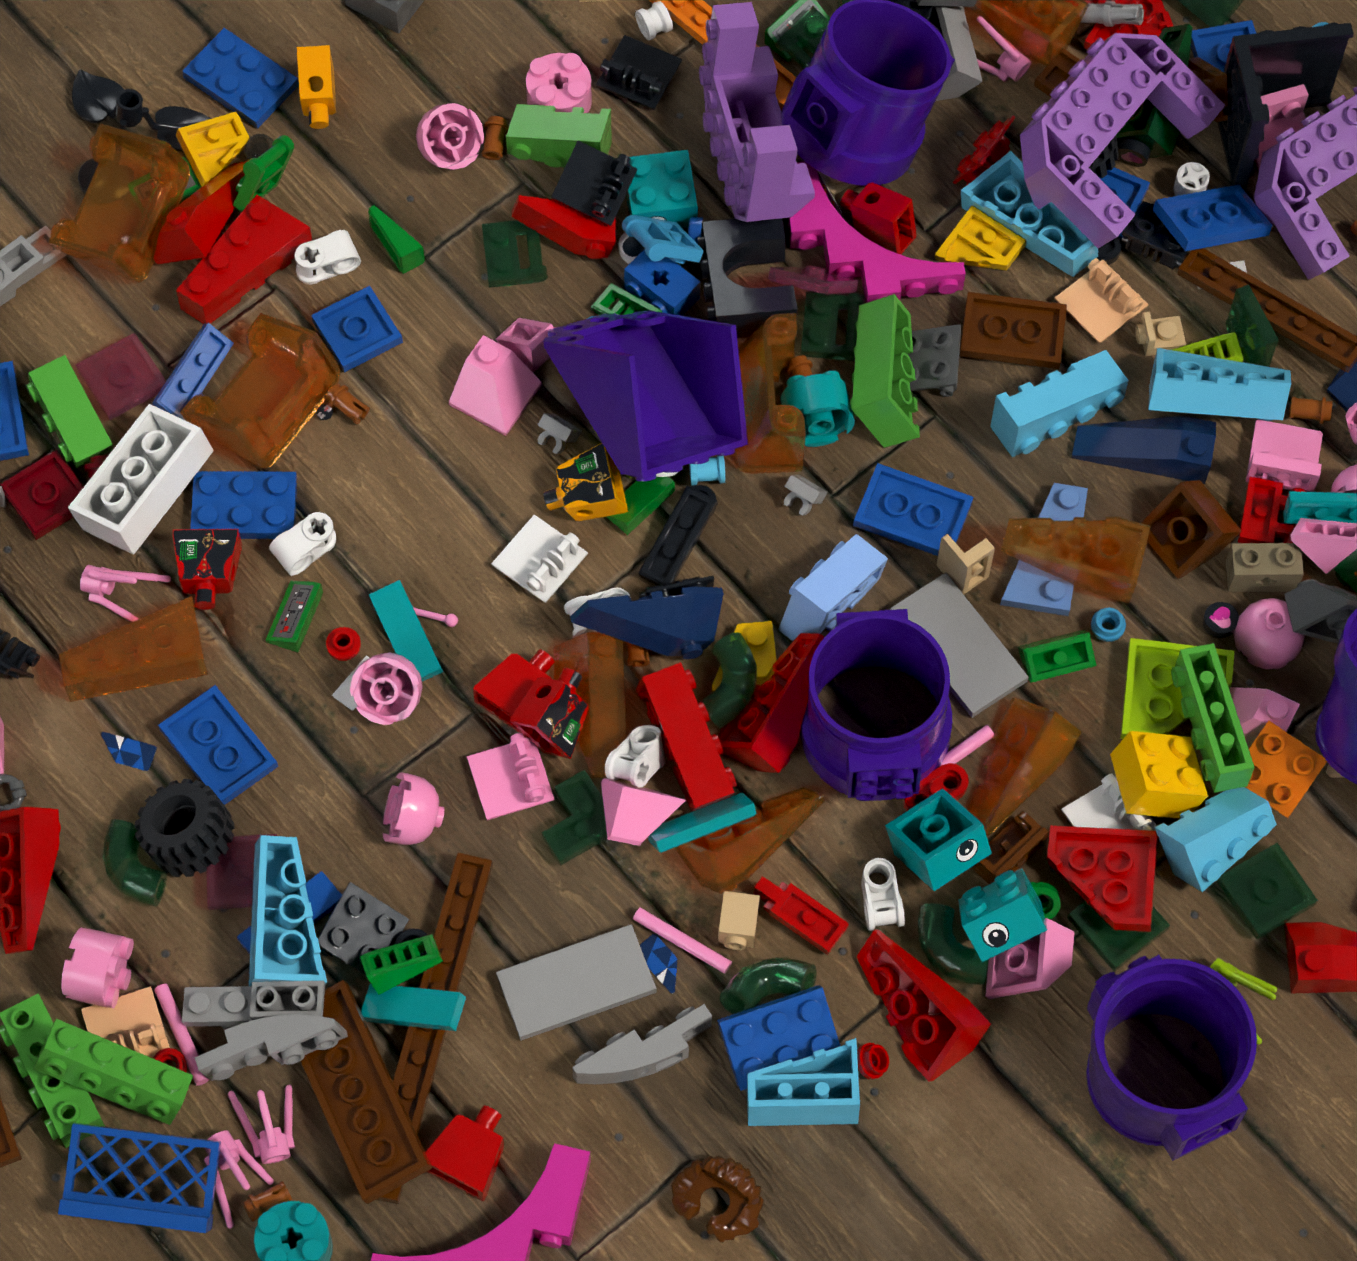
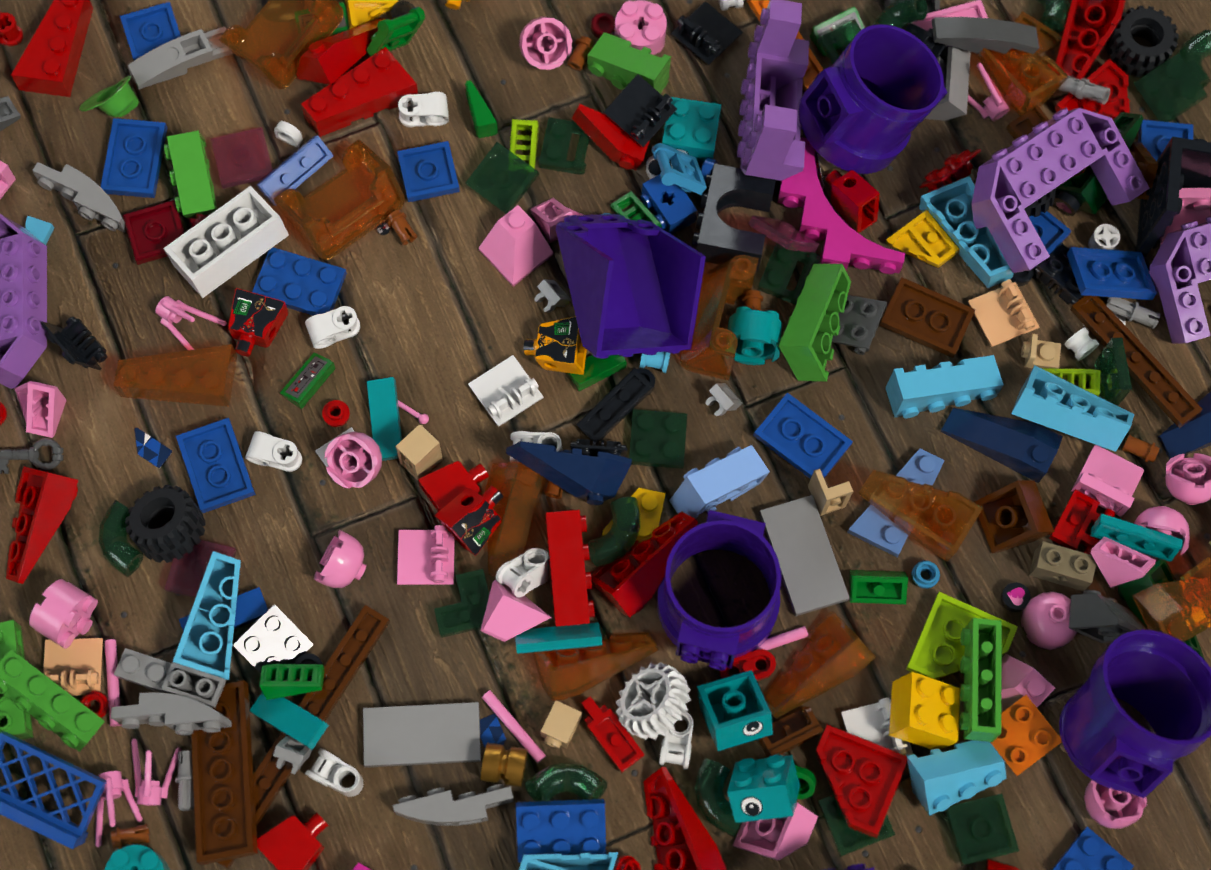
camera: 15 degrees right, 5 degrees up
(169, 332) = (288, 133): none -> white tile
(279, 710) = (269, 451): none -> white piece
(312, 1117) = (185, 781): none -> light grey axle
(432, 1041) = (291, 751): none -> light grey tile
(450, 311) = (502, 178): none -> clear green plate
(455, 242) = (525, 125): none -> lime slope
(463, 657) = (419, 452): none -> tan panel
(482, 1054) = (331, 771): none -> white piece
(508, 96) = (602, 23): none -> dark red tile
(687, 984) = (503, 764): none -> pearl gold wheel
(742, 561) = (658, 438): none -> clear green plate
(835, 878) = (653, 701): none -> white gear
(1203, 309) = (1081, 344): none -> white wheel
(1251, 255) = (1133, 311): none -> light grey axle

